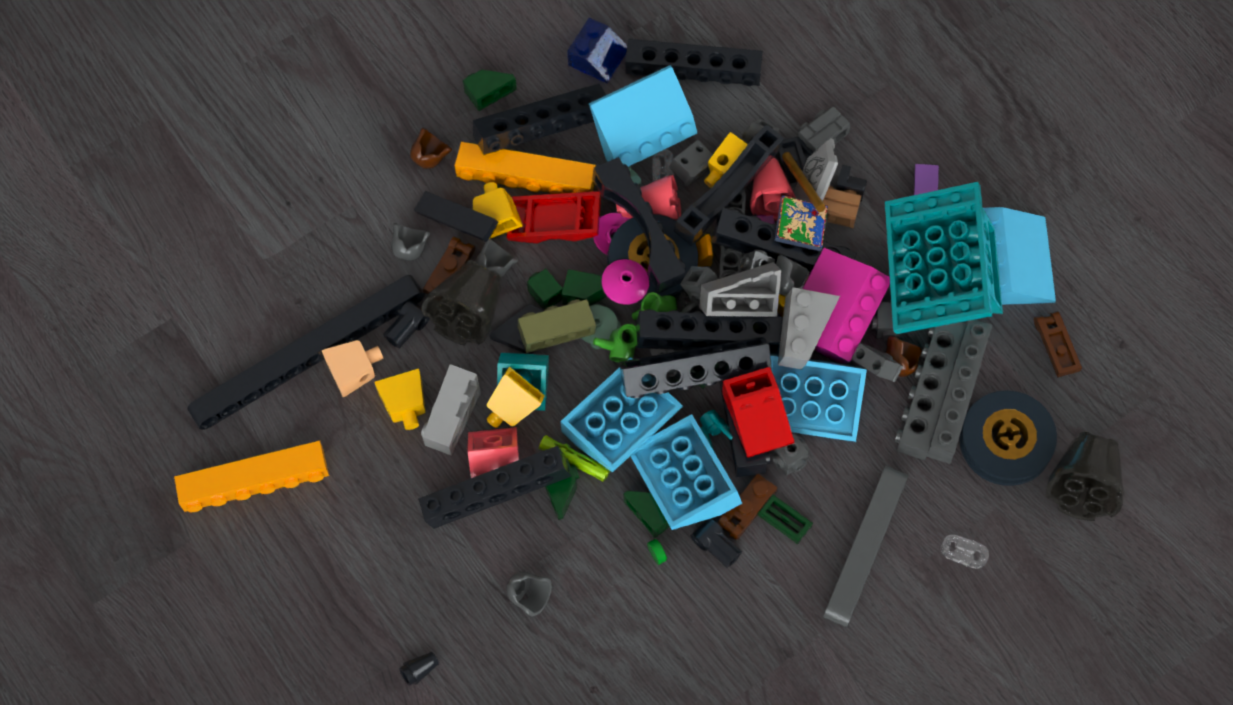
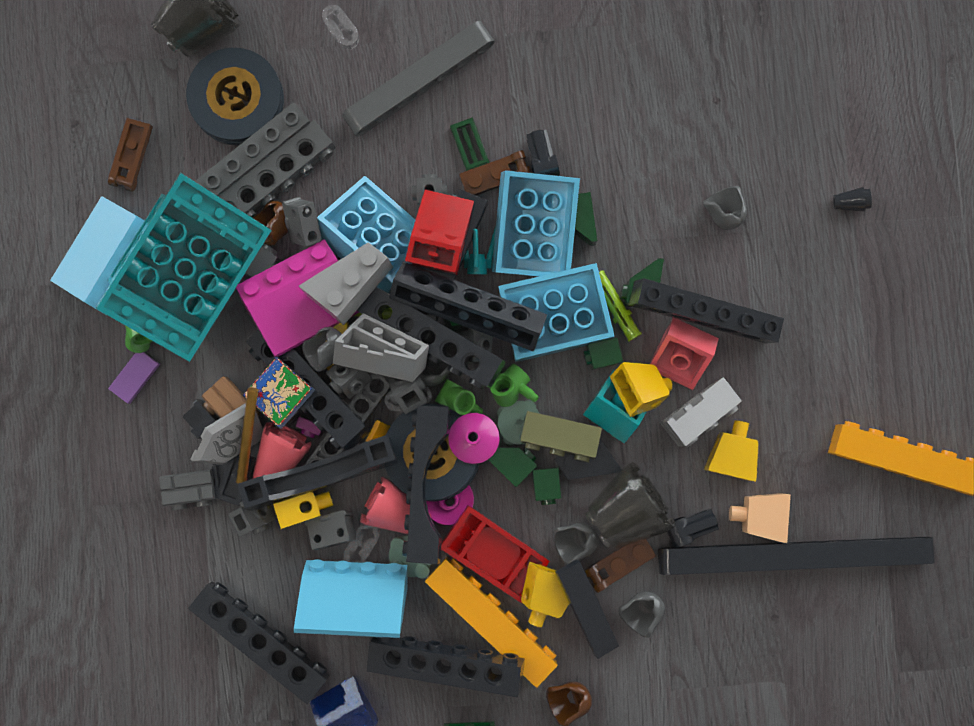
camera: 150 degrees left, 20 degrees up
(557, 410) = (603, 354): none -> dark green brick
(657, 551) = (597, 178): green tile -> none

